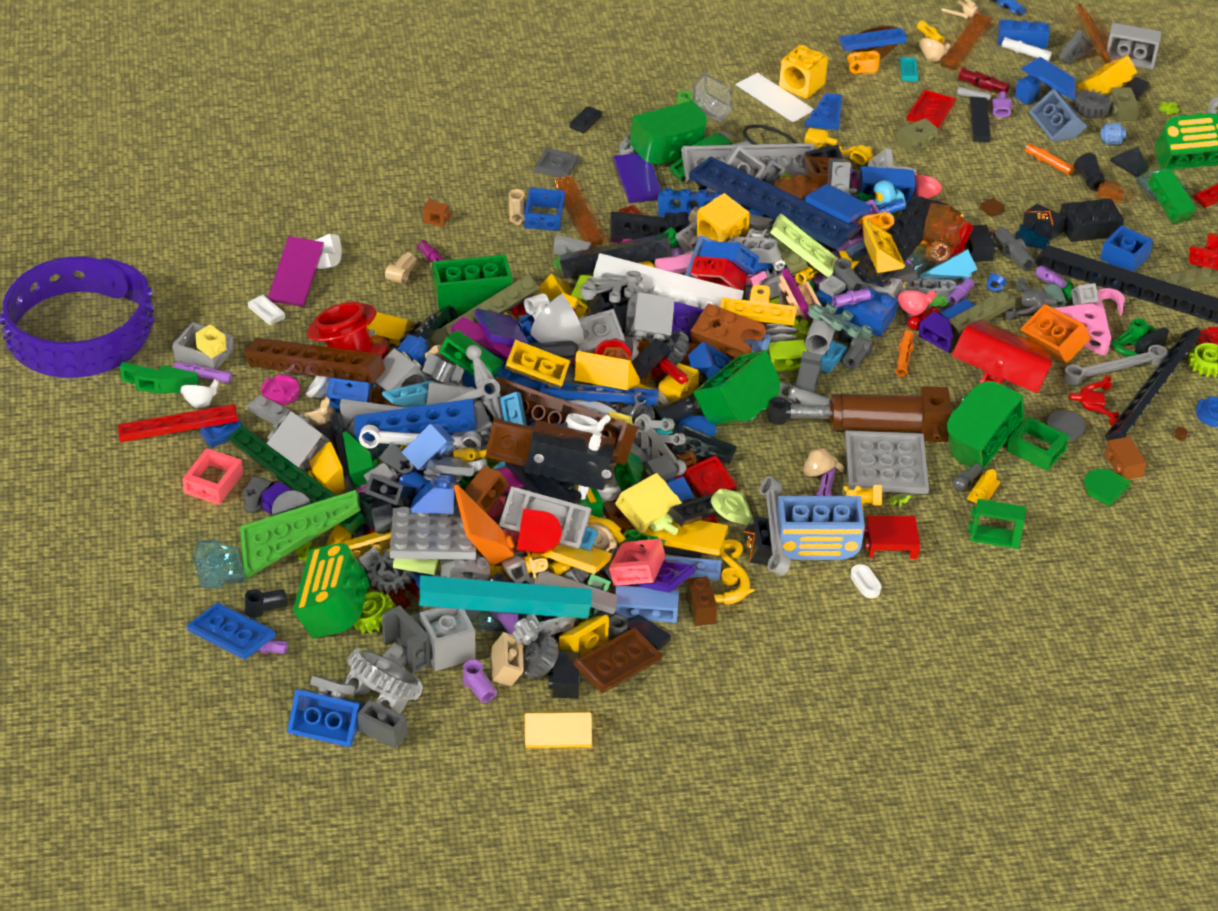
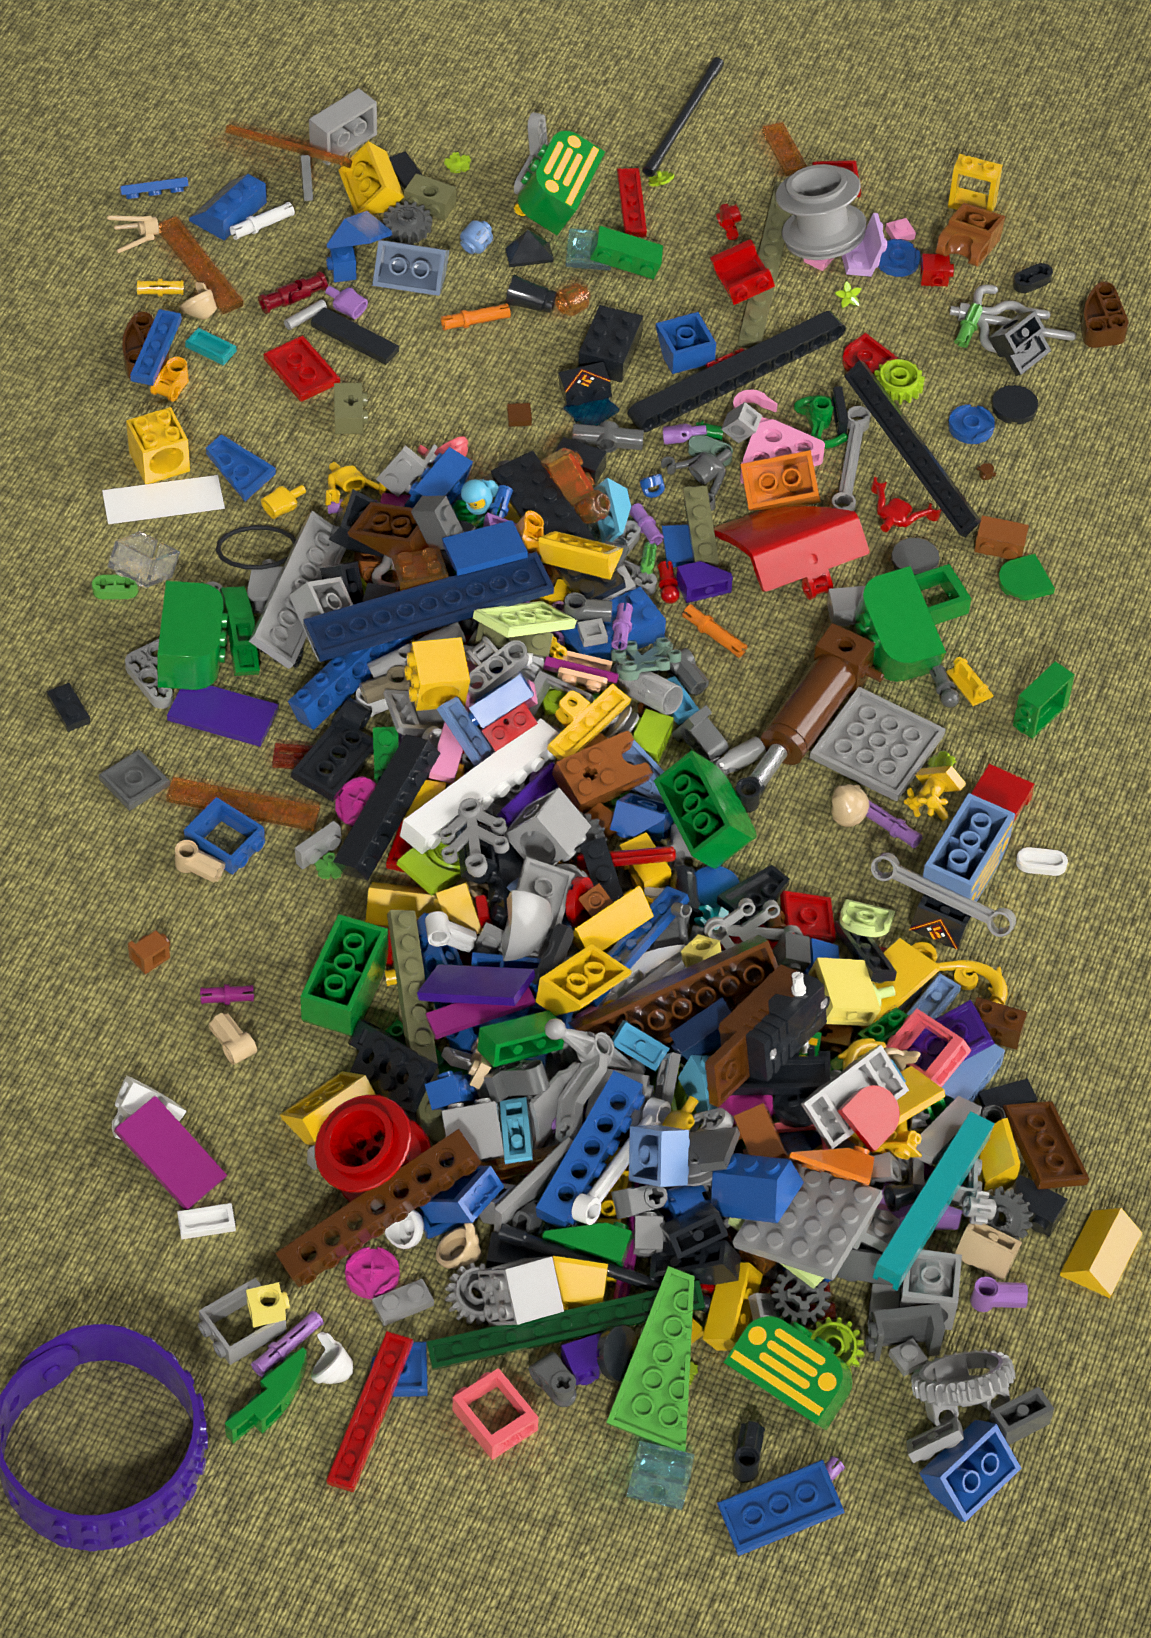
camera: 60 degrees left, 10 degrees up
(586, 423) = (737, 983): white hat -> none
(915, 302) = (660, 575): coral hat -> none

